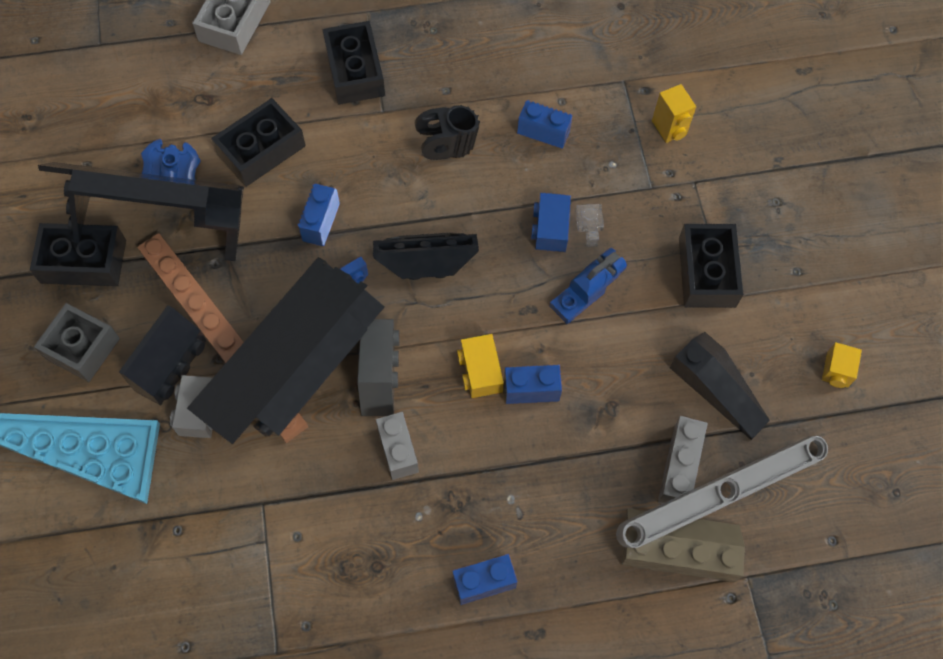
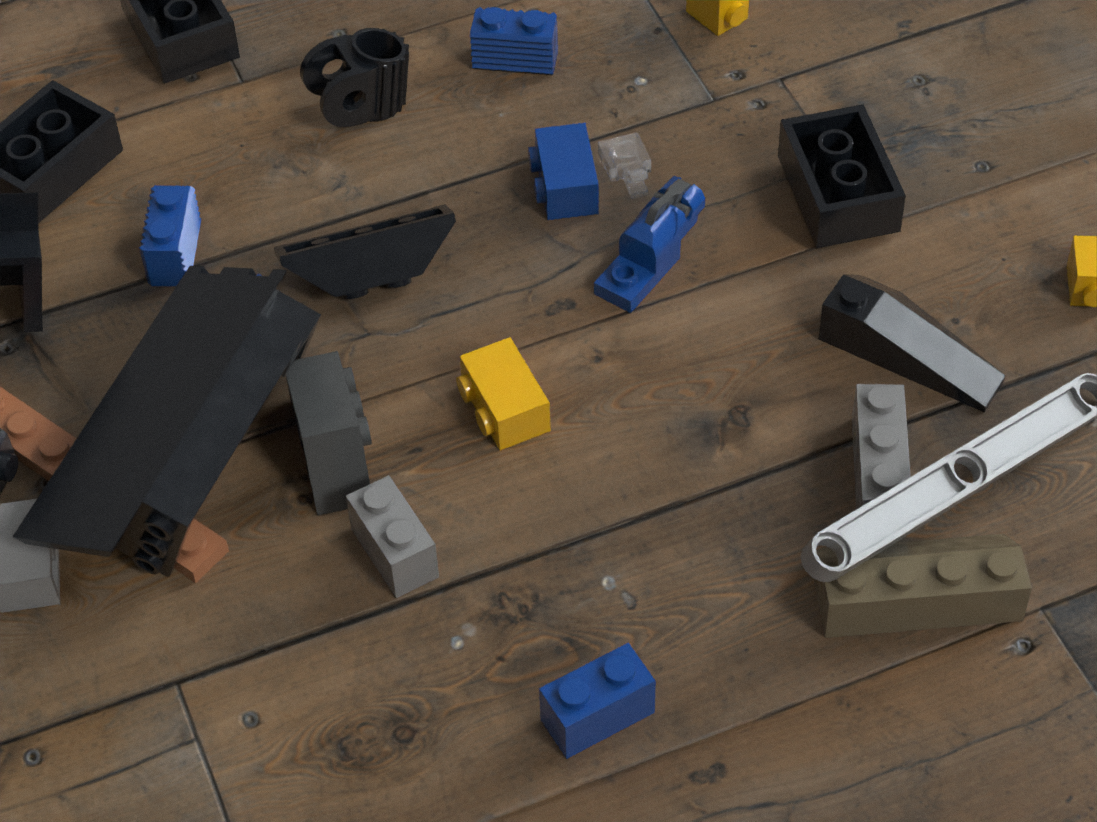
camera: 10 degrees left, 15 degrees down
(532, 384) = (598, 400): blue brick -> none

